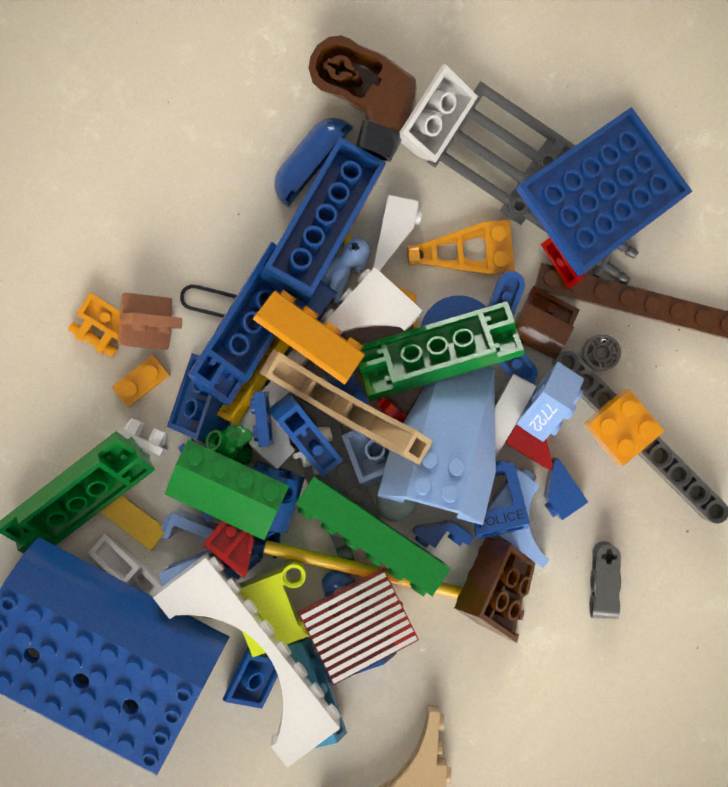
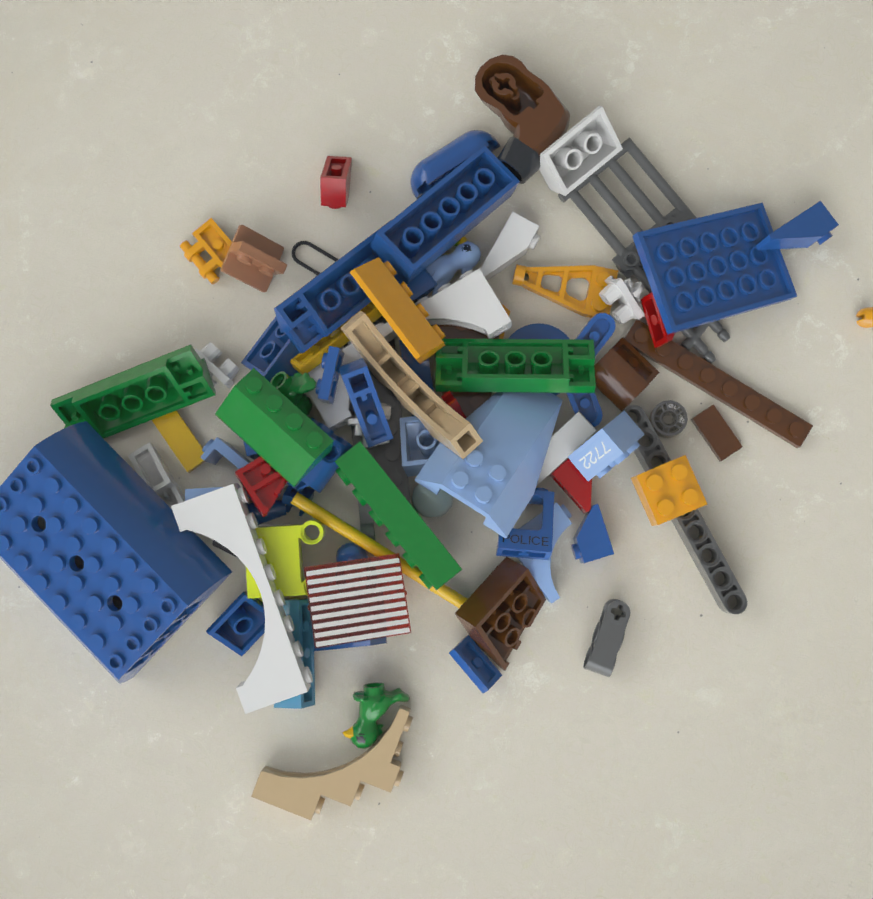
camera: 20 degrees right, 5 degrees down
(141, 381) = (231, 313): light orange plate -> none
(202, 216) = (335, 181): none -> red slope
(402, 715) = (372, 706): none -> green animal
(434, 532) = (456, 538): blue slope -> none
(487, 646) = (475, 664): none -> blue plate
(524, 244) = (627, 295): none -> white hips
(652, 351) = (716, 433): none -> reddish brown tile
(681, 122) = (802, 231): none -> blue slope

